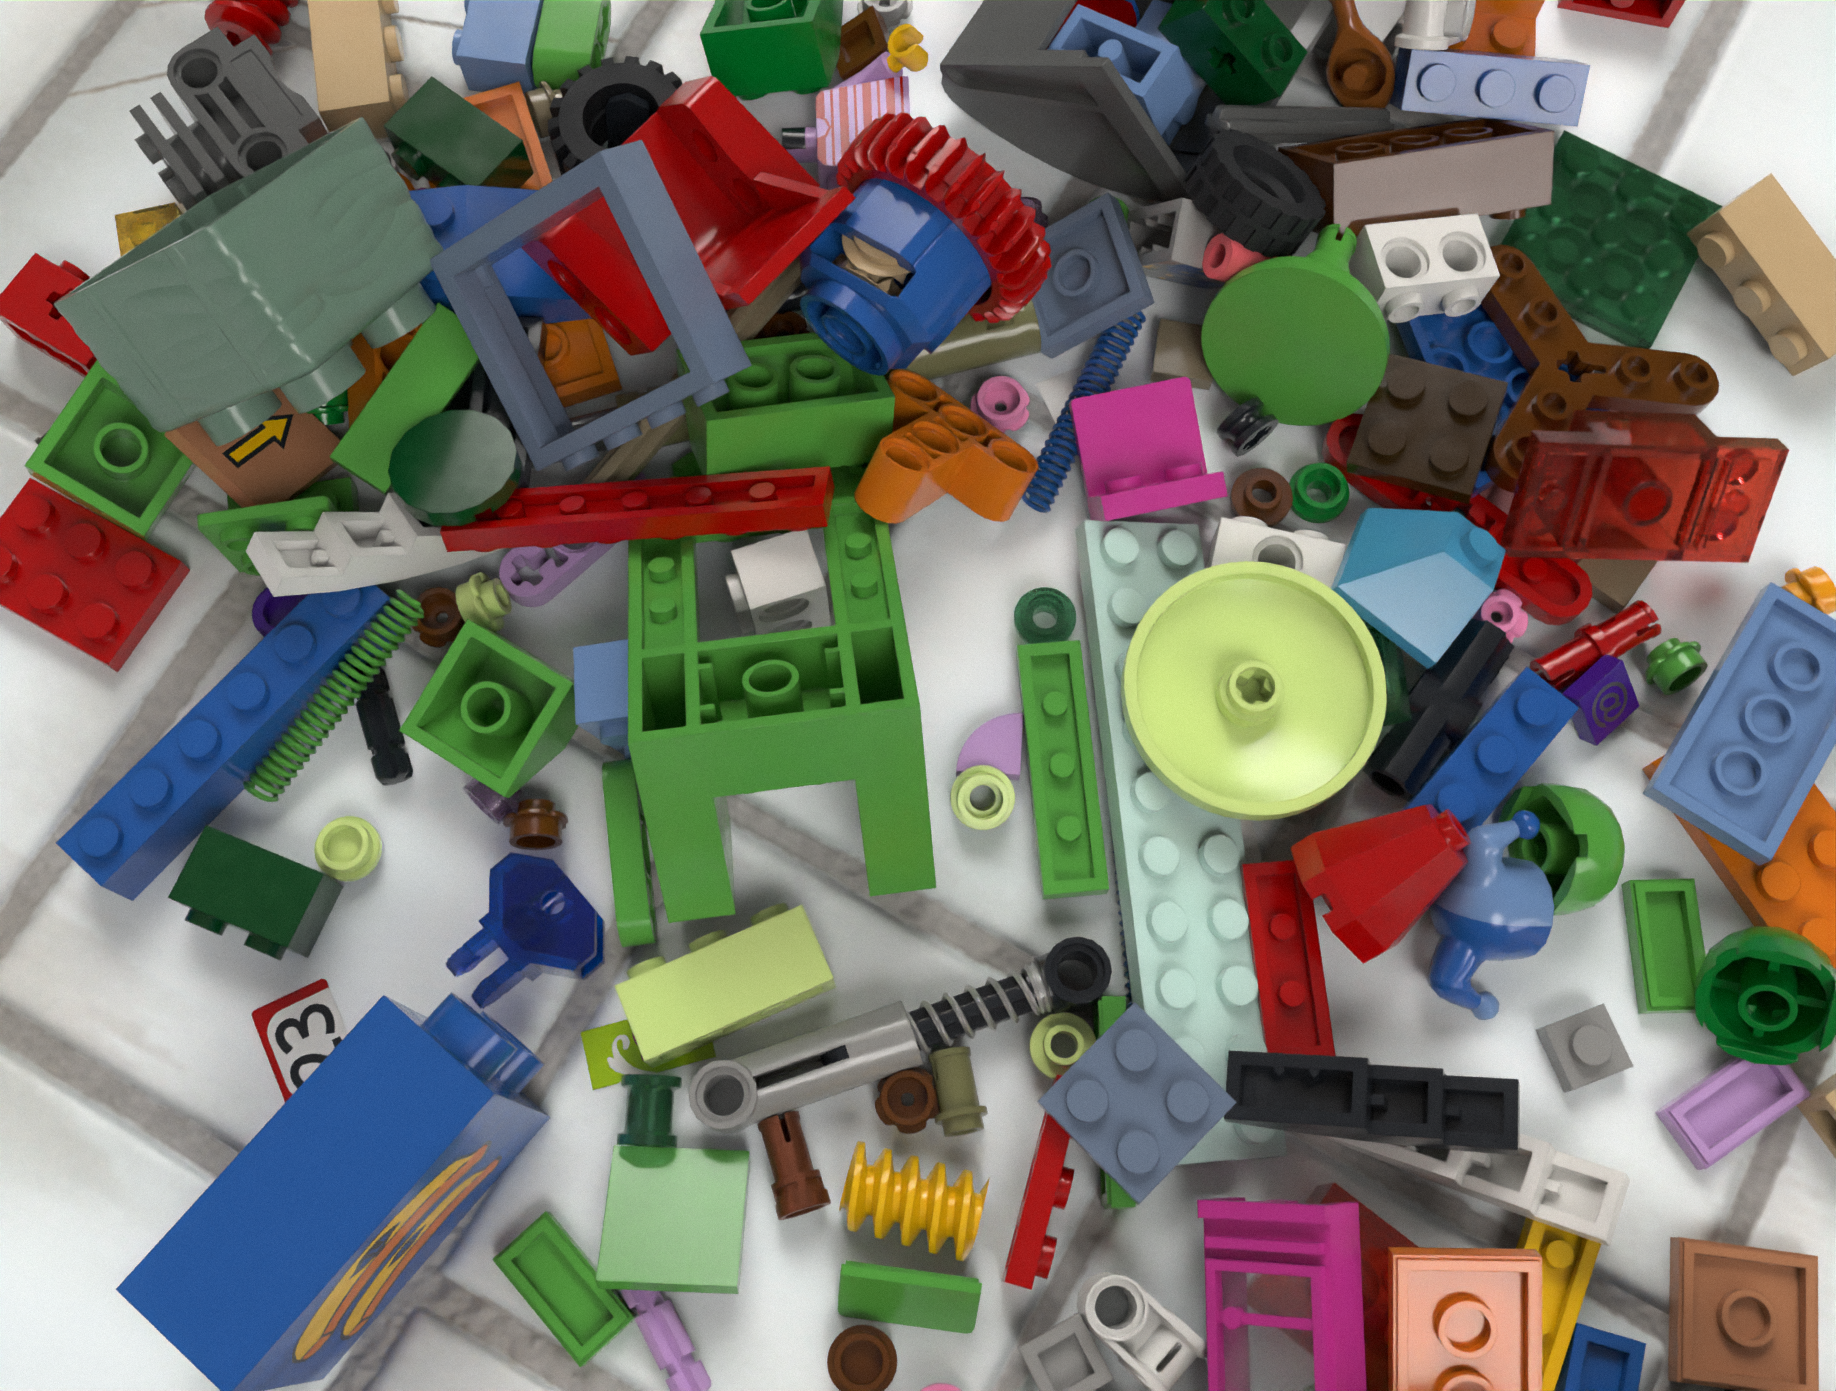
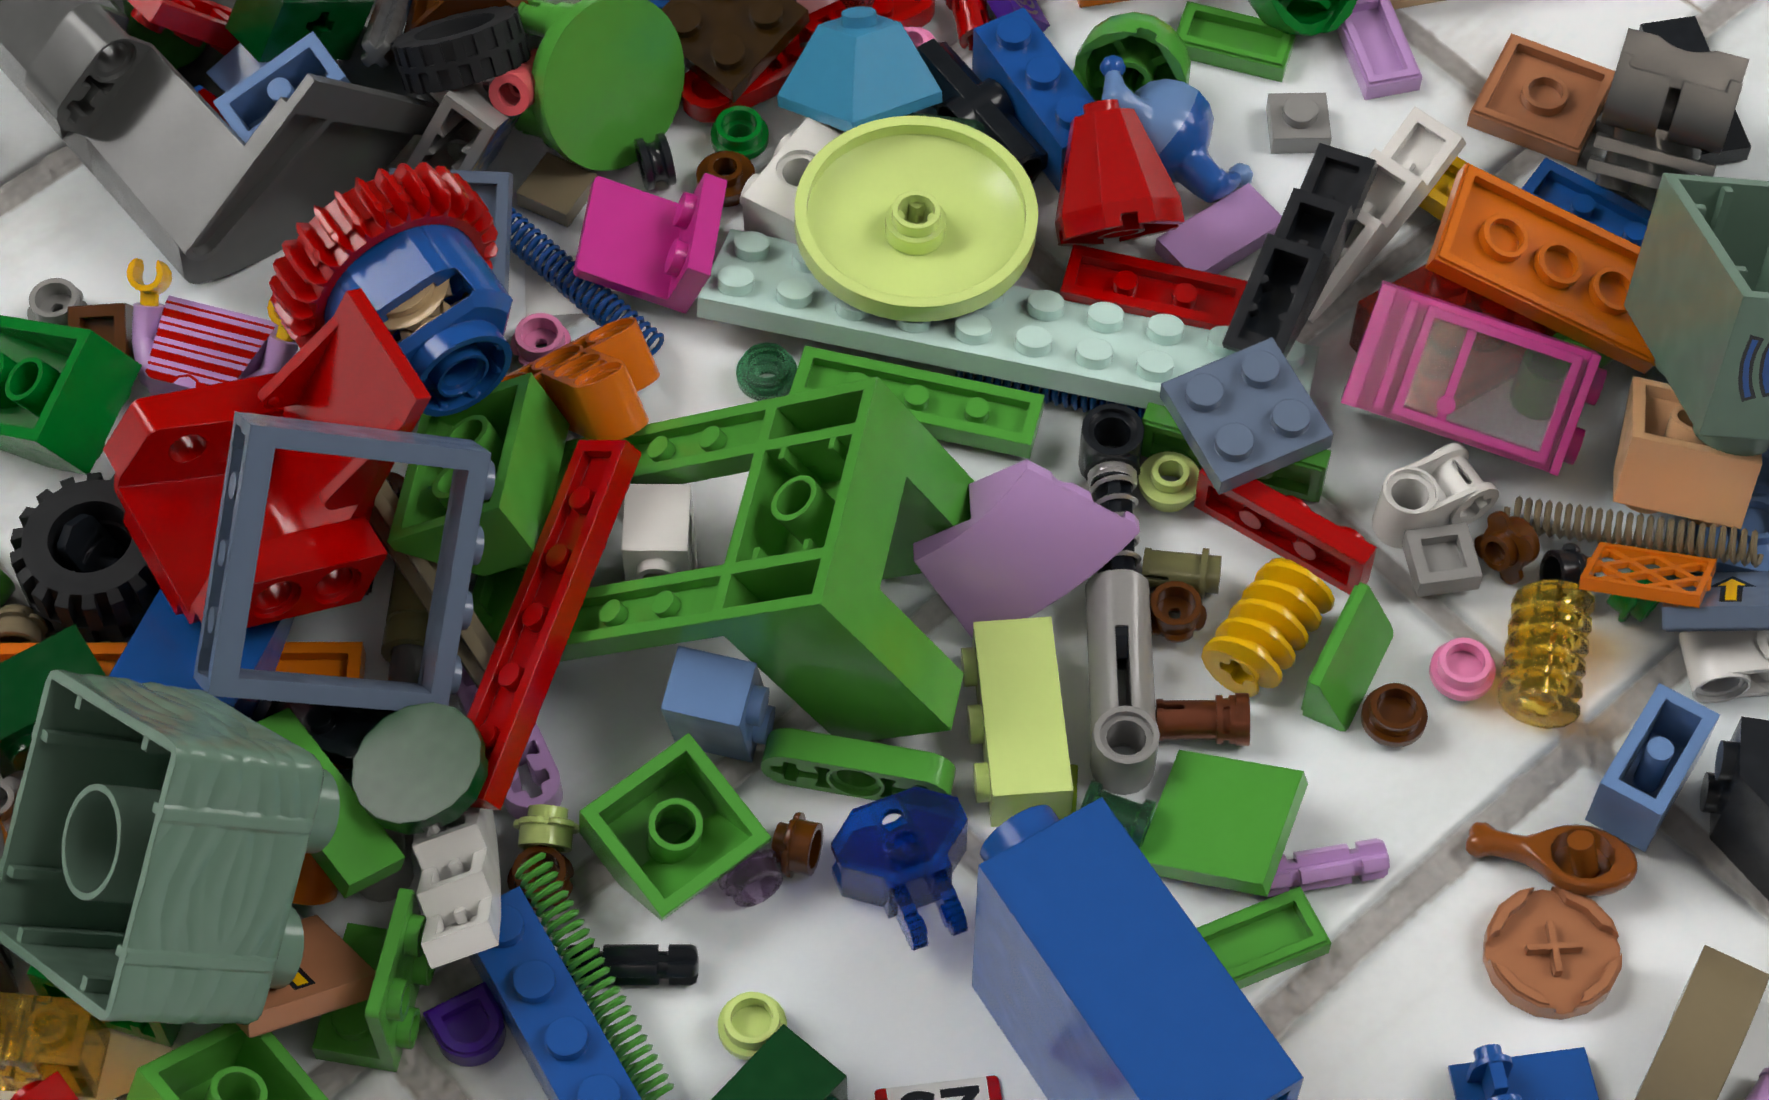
camera: 70 degrees left, 15 degrees down
(892, 923) = (1022, 546): none -> lavender slope
(1397, 1010) = (1220, 233): none -> lavender tile

